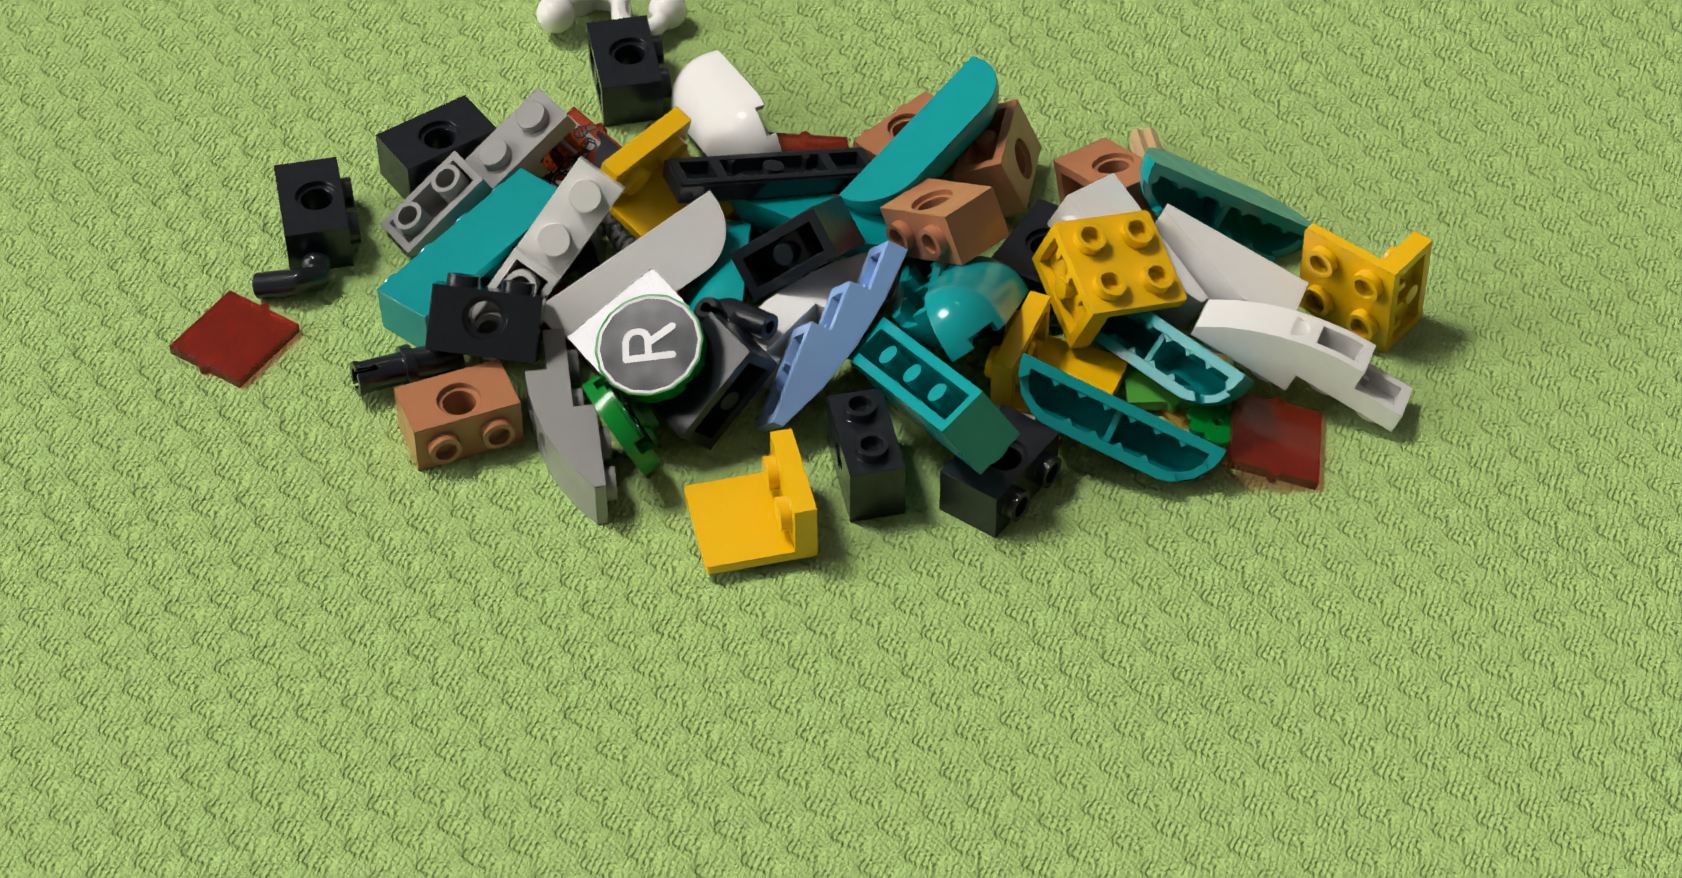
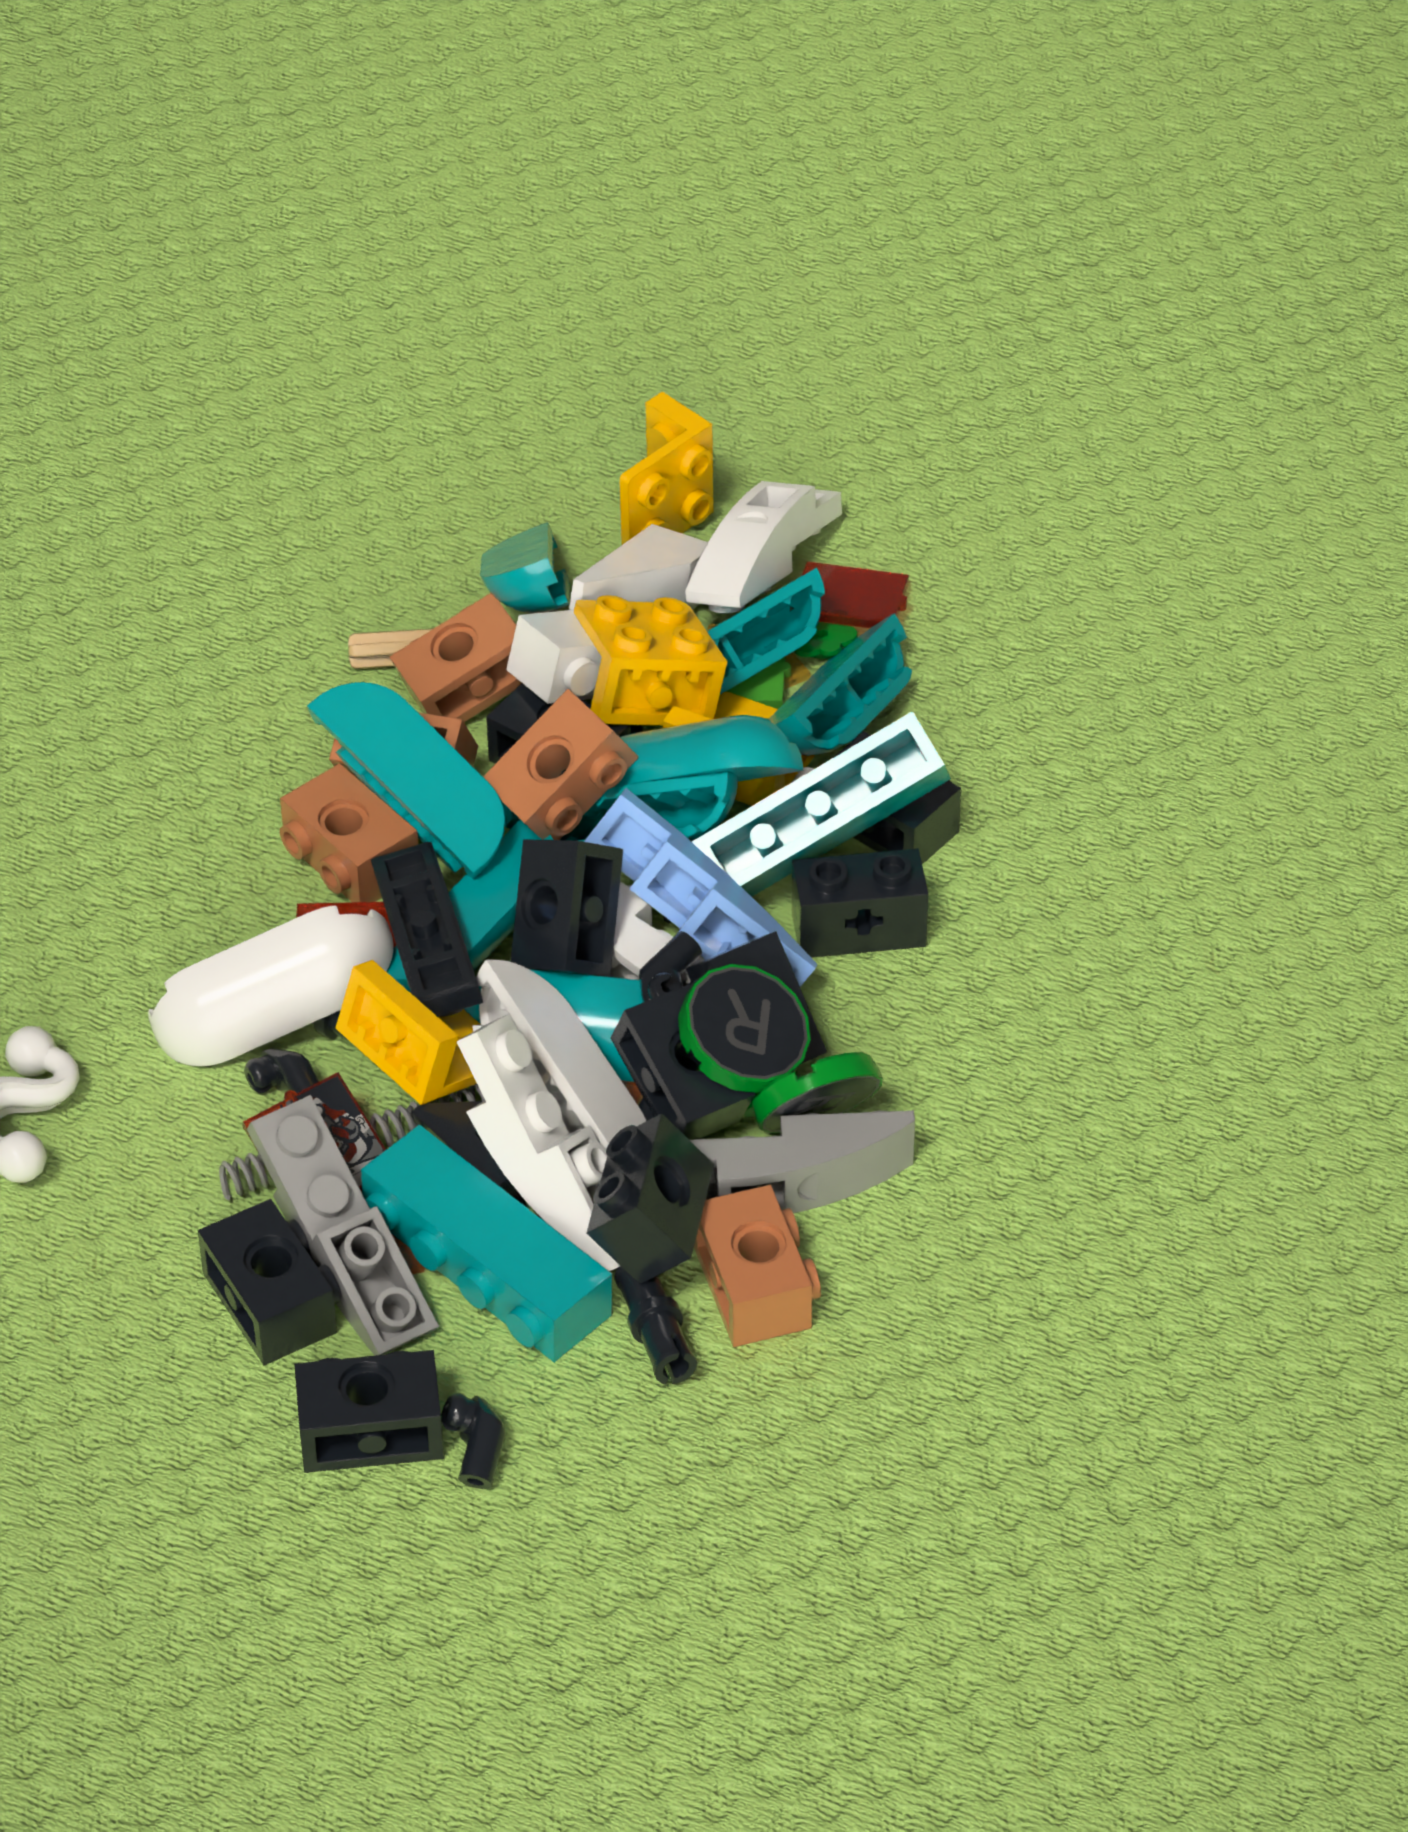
camera: 85 degrees left, 0 degrees up
(234, 338) = (562, 1511): clear red piece -> none
(627, 70) = (148, 1091): black brick -> none
(756, 515) = (932, 996): yellow bracket -> none

